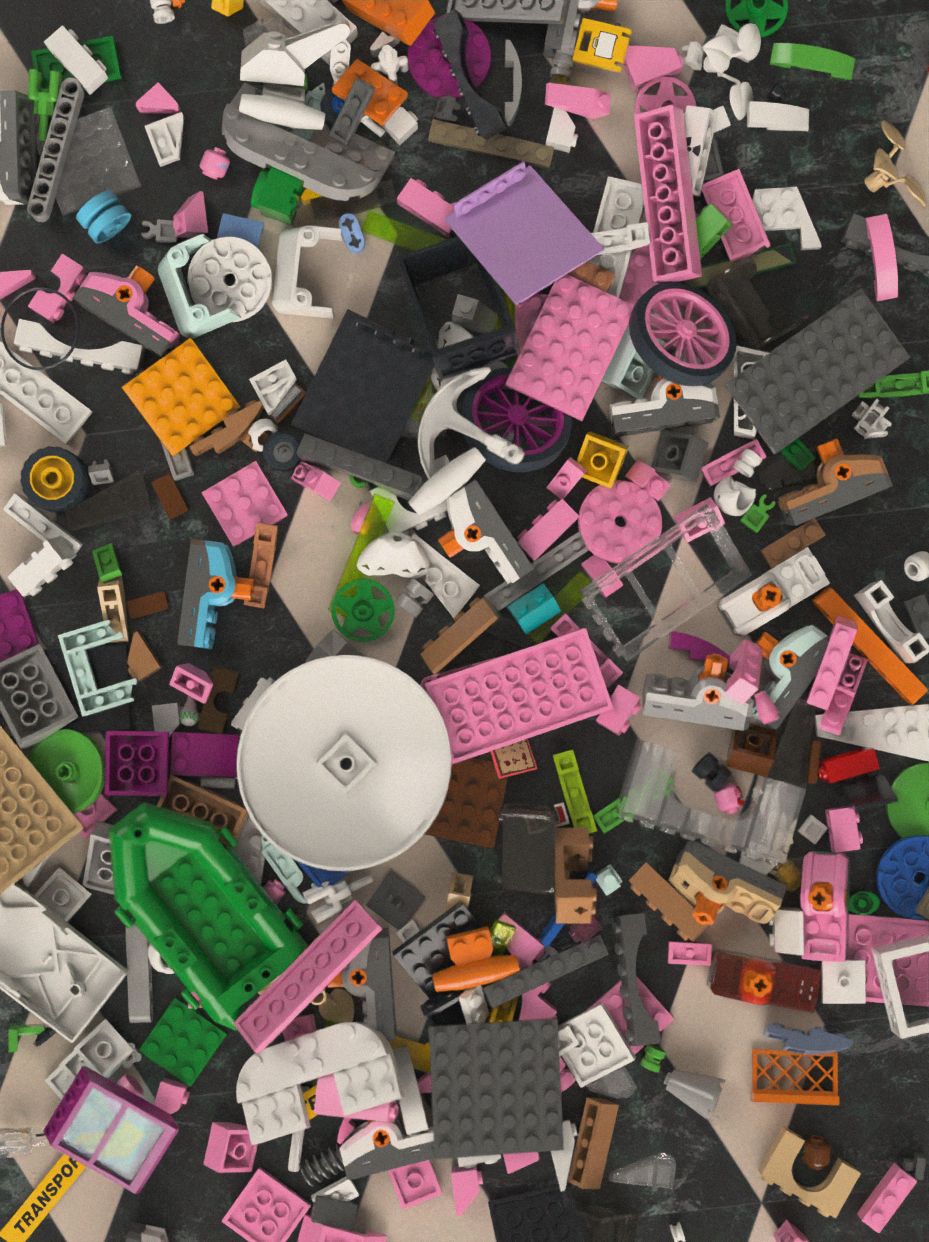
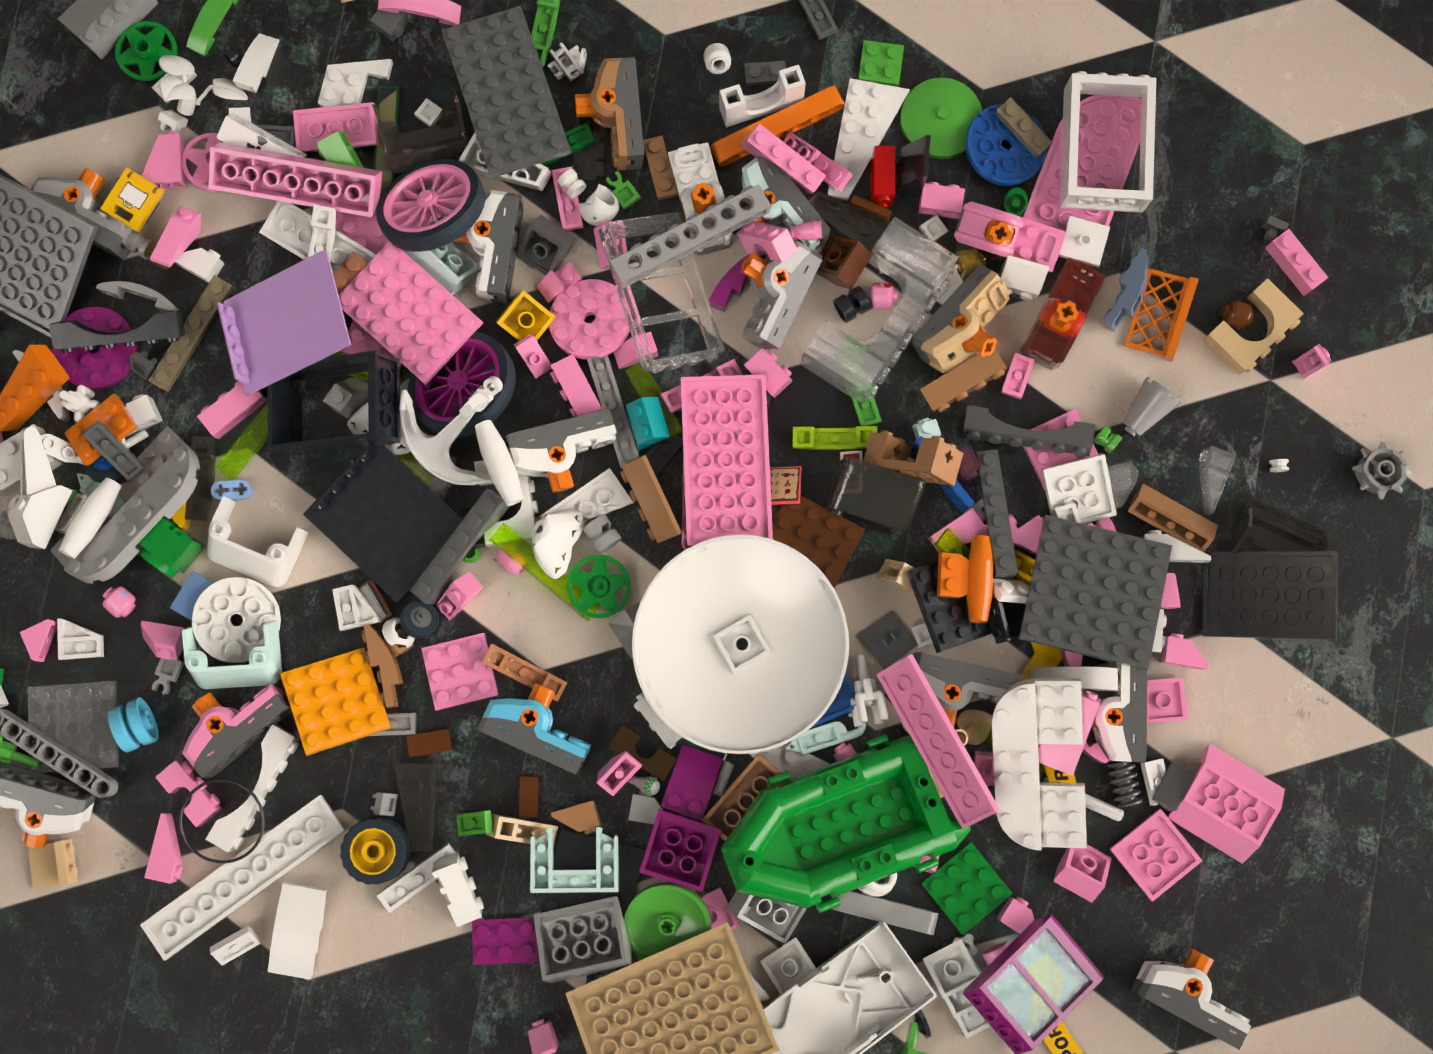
camera: 70 degrees left, 5 degrees down
(778, 300) = (428, 113): none -> white tile
(784, 642) = (721, 227): none -> light grey brick

